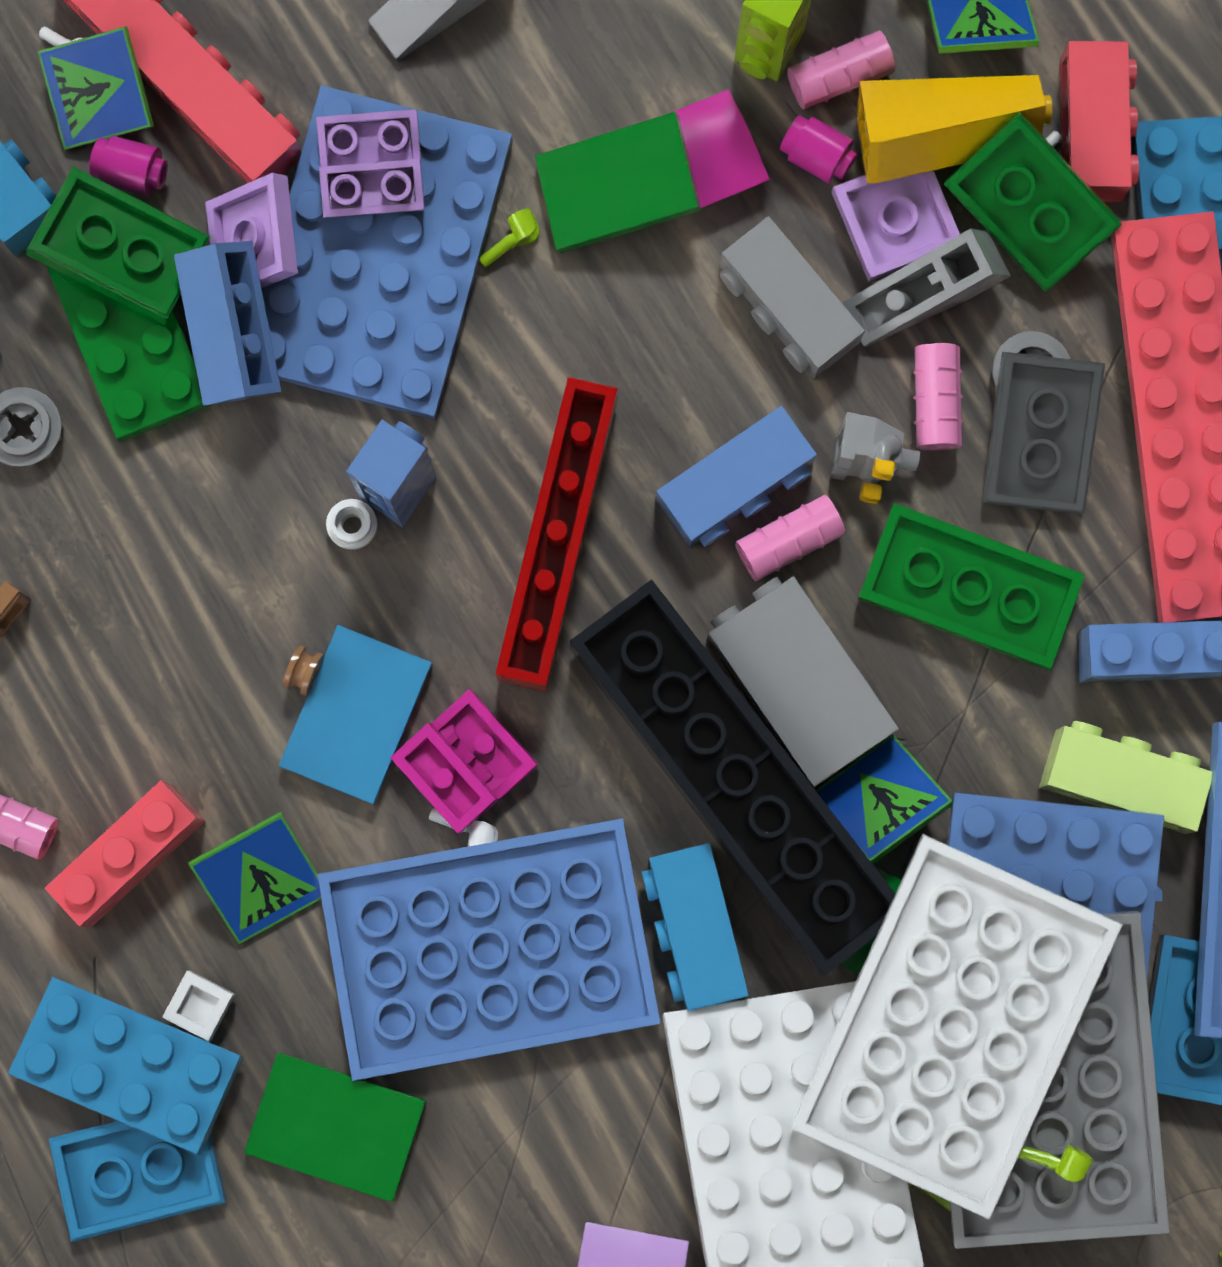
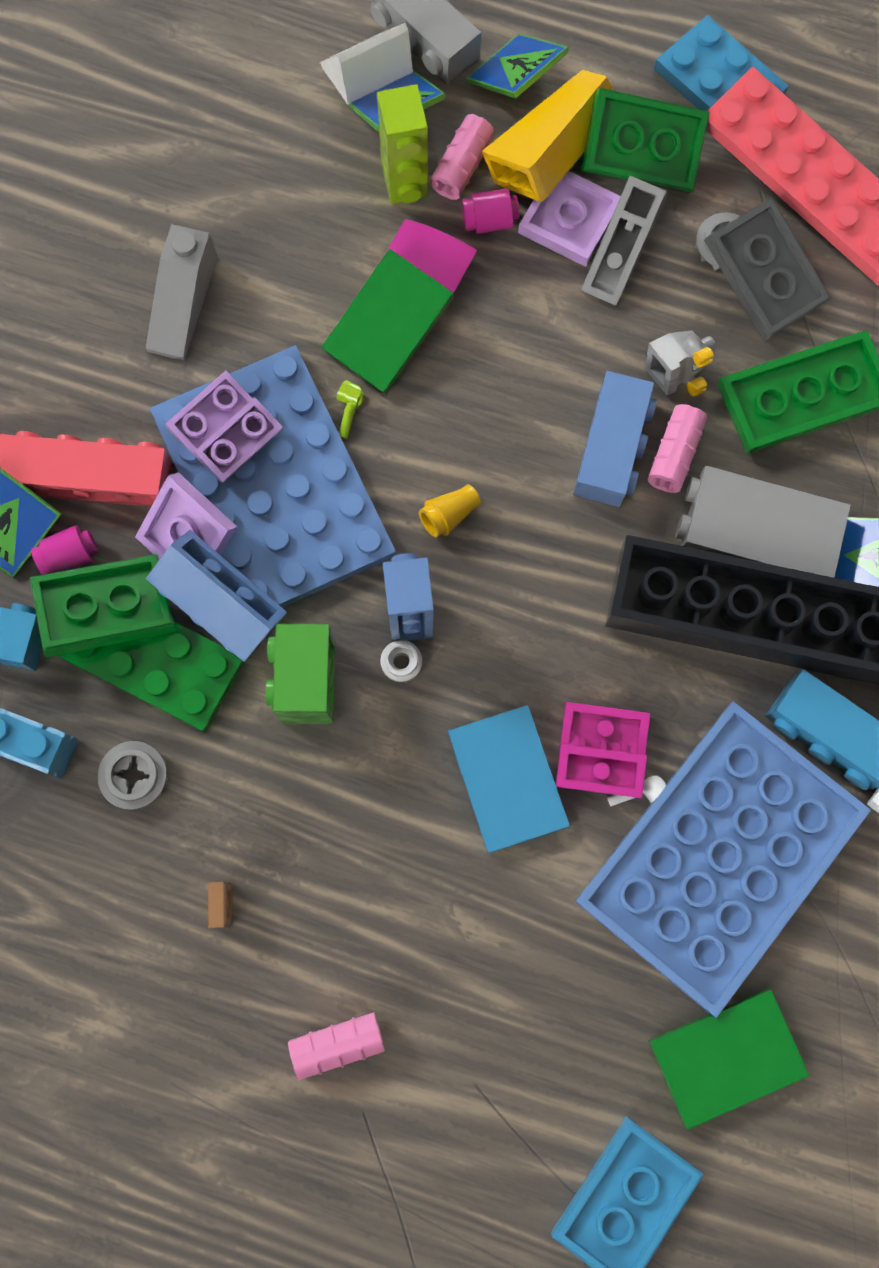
camera: 40 degrees left, 5 degrees down
(124, 854) = (441, 999): coral brick -> none
(126, 1065) = (561, 1140): dark azure plate -> none
(199, 1005) = (573, 1056): white plate -> none
(244, 462) = (302, 673): none -> bright green brick
(258, 878) = (540, 936): piece -> none
(302, 670) = (452, 778): medium nougat bush -> none
(517, 417) = (447, 511): none -> yellow cone
(557, 534) = (540, 560): red brick -> none
(789, 299) = (551, 308): light grey brick -> none
(938, 396) = (688, 297): bright pink axle -> none
(1099, 116) = (632, 63): coral brick -> none

